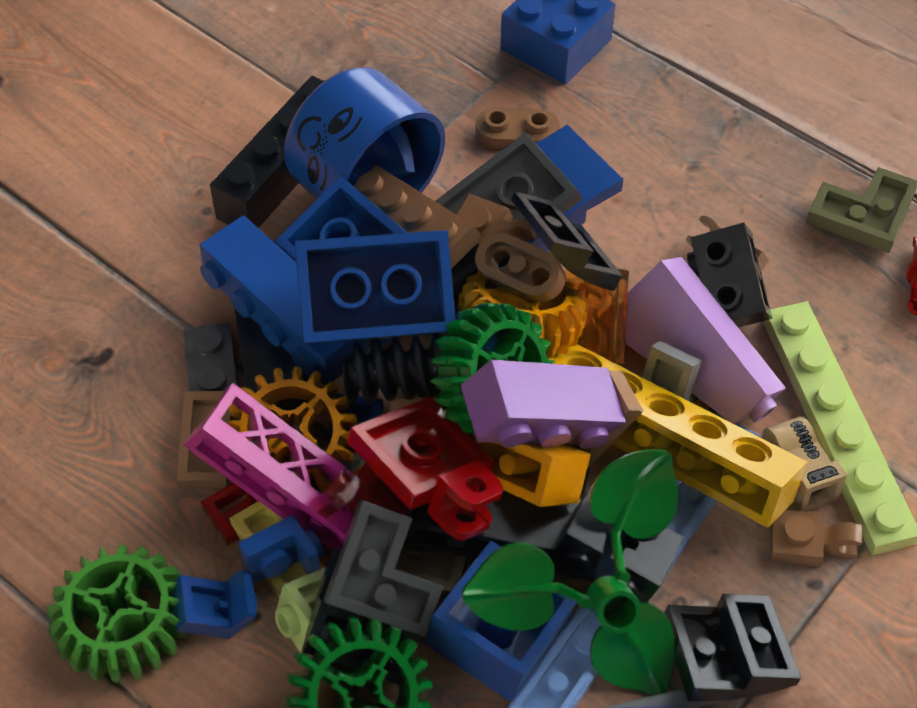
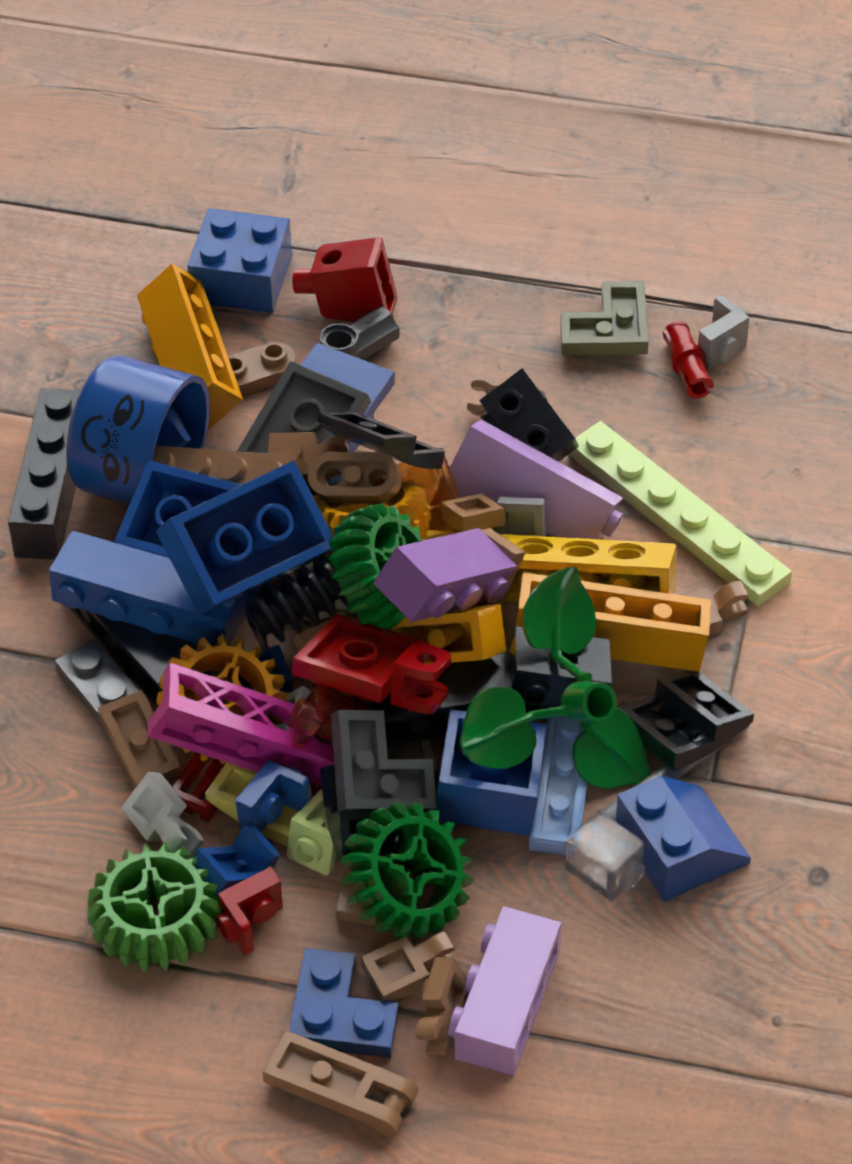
camera: 25 degrees left, 5 degrees down
(177, 517) = (156, 812): none -> white plate
(200, 649) = (248, 903): none -> red bracket
(468, 83) = (188, 336): none -> light orange brick
(622, 137) = (362, 336): none -> dark grey piece
(624, 347) = (472, 513): none -> medium nougat plate
(642, 81) = (349, 279): none -> red torso
(729, 528) = (642, 623): none -> light orange brick
(820, 473) = (690, 555): tan leg -> none

